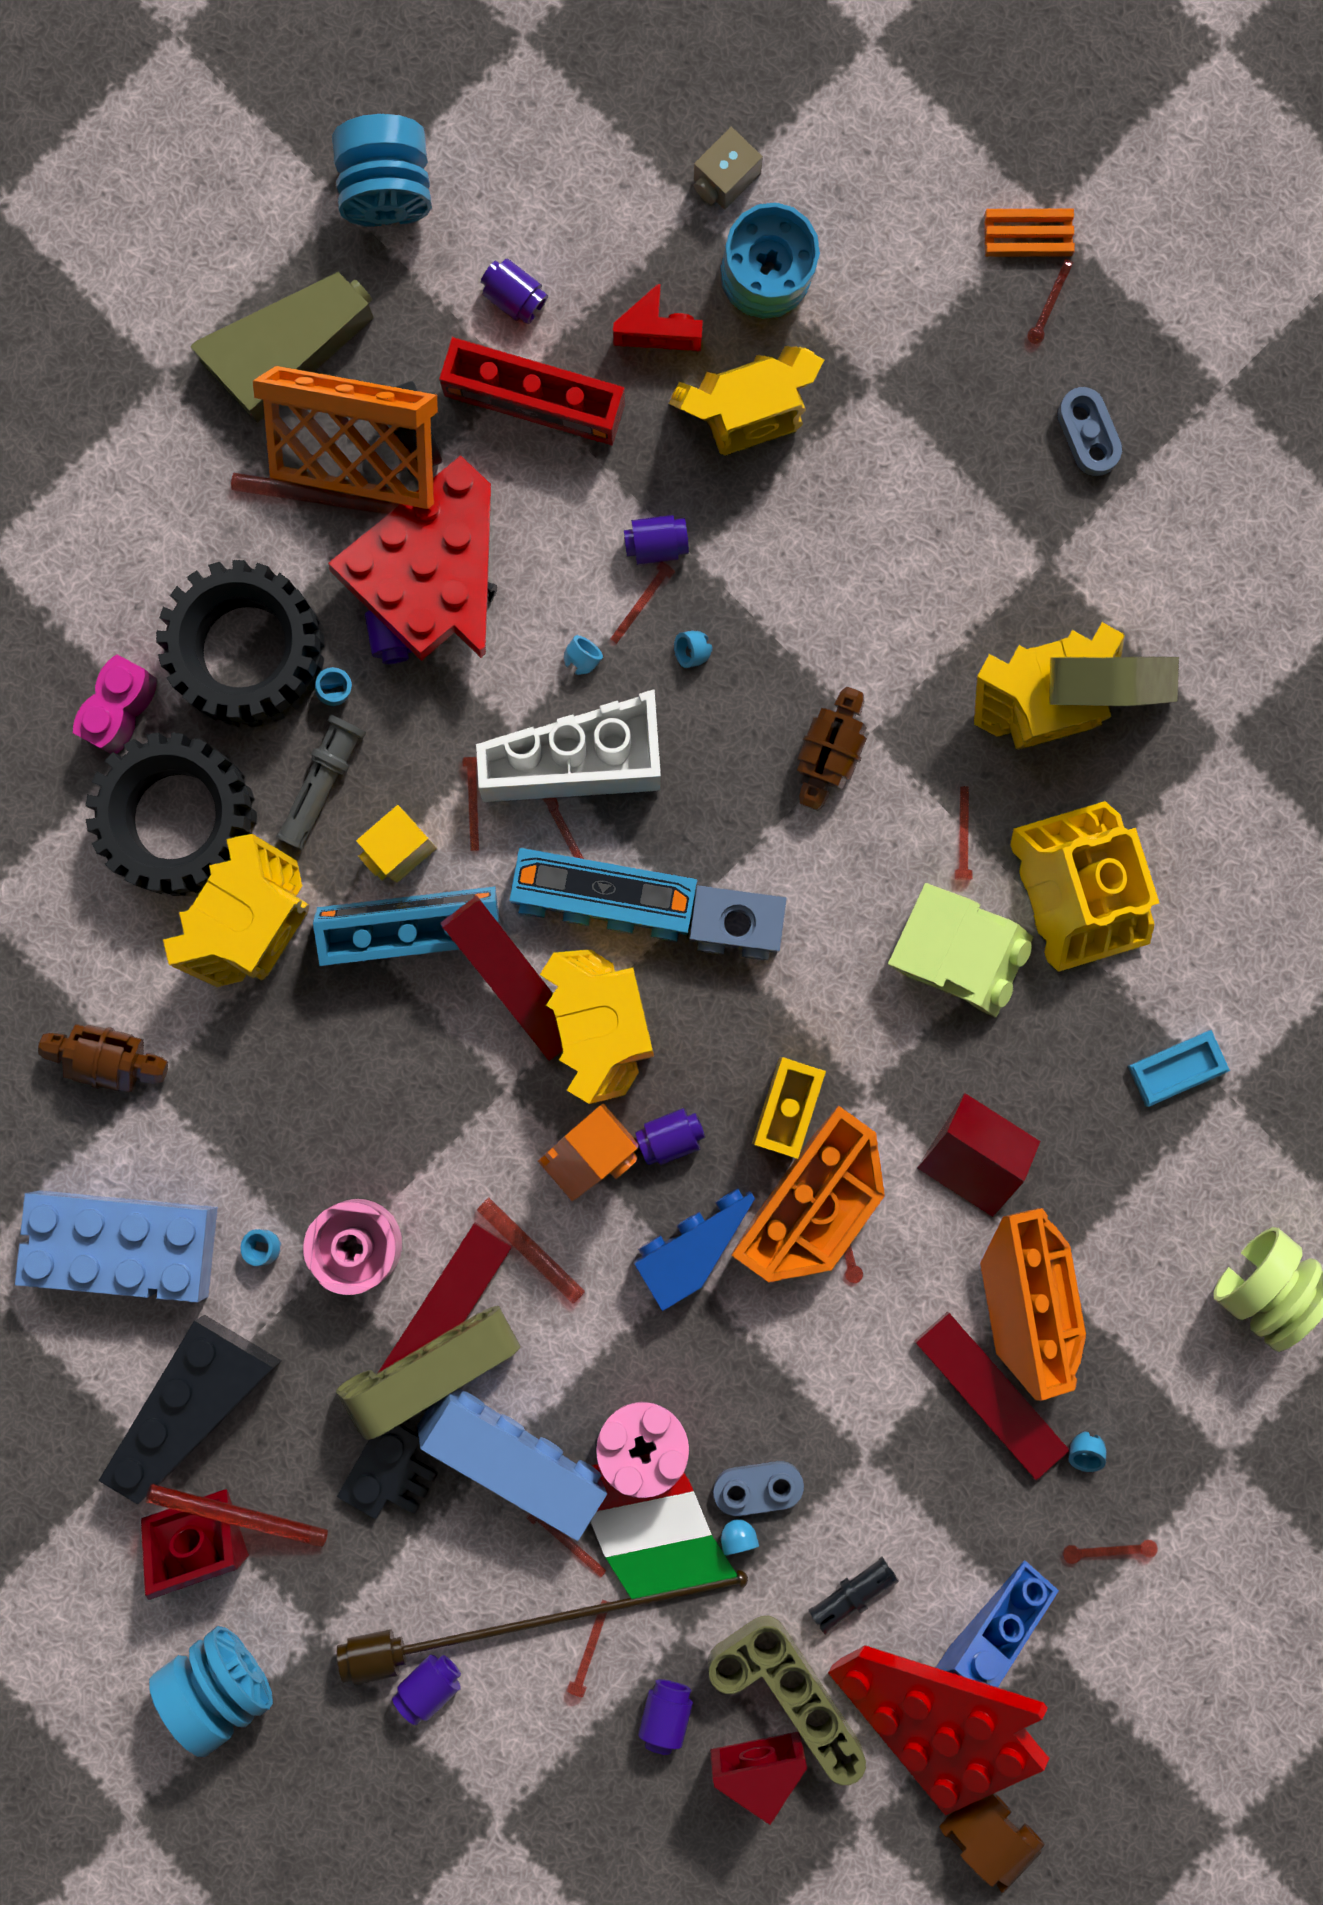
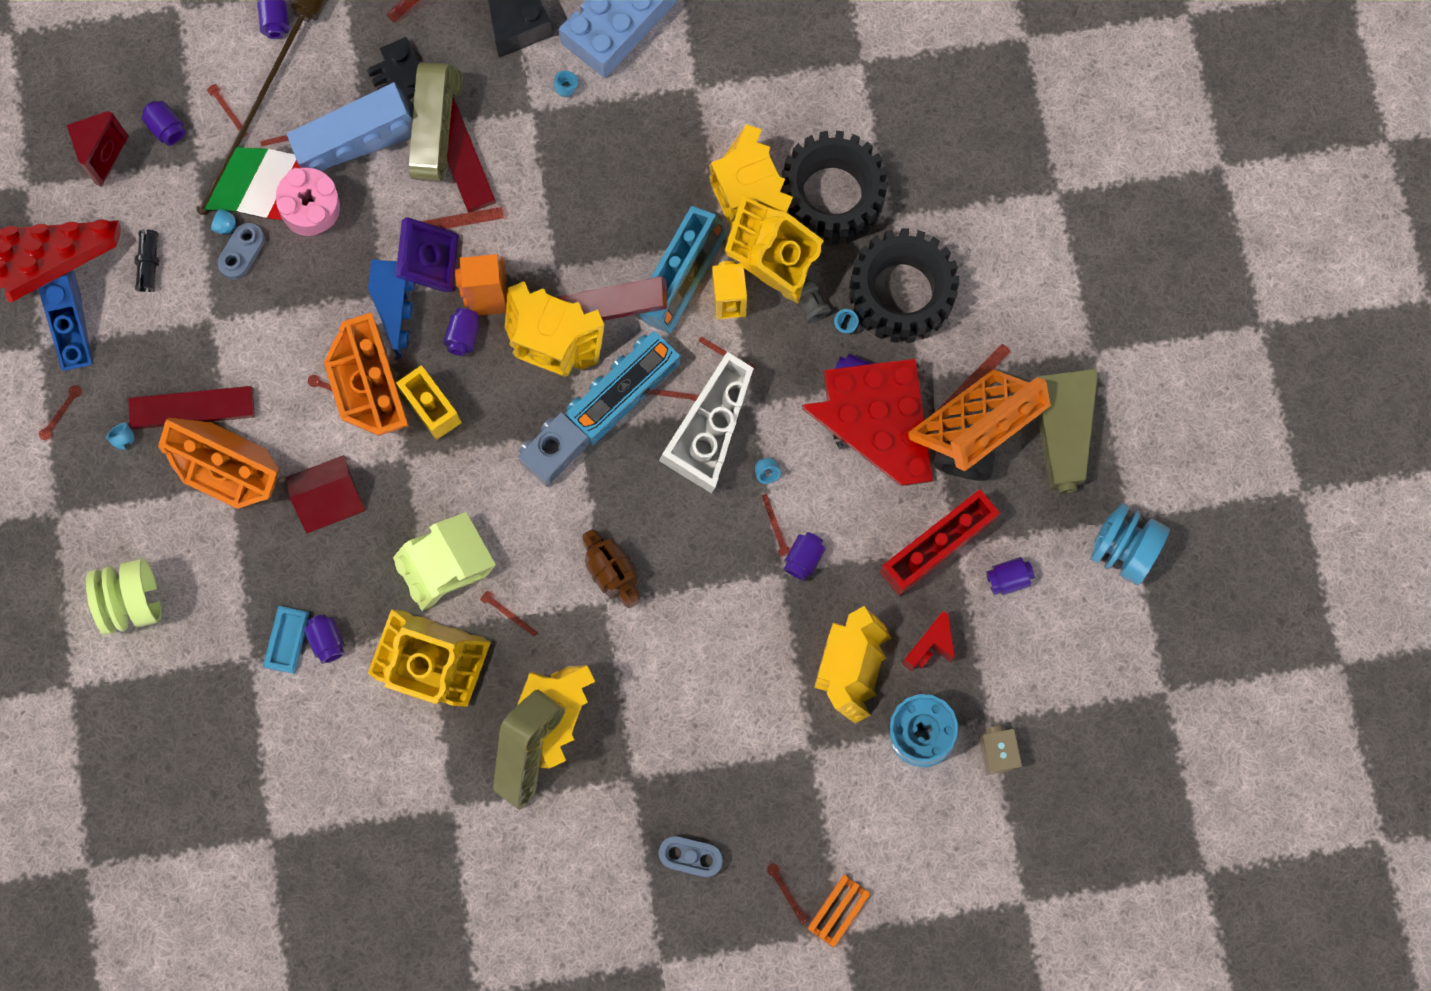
camera: 125 degrees right, 10 degrees down
(103, 1057) = (726, 69): reddish brown piece -> none
(120, 695) = (913, 194): dark pink brick -> none
(310, 816) = (773, 247): none -> yellow slope
(333, 1262) = (529, 127): bright pink brick -> none
(606, 1249) = (427, 255): none -> dark purple tile
(699, 648) = (726, 533): dark azure hinge -> none
(796, 1701) = (118, 190): olive beam -> none
(1148, 1021) = (324, 638): none -> dark purple brick

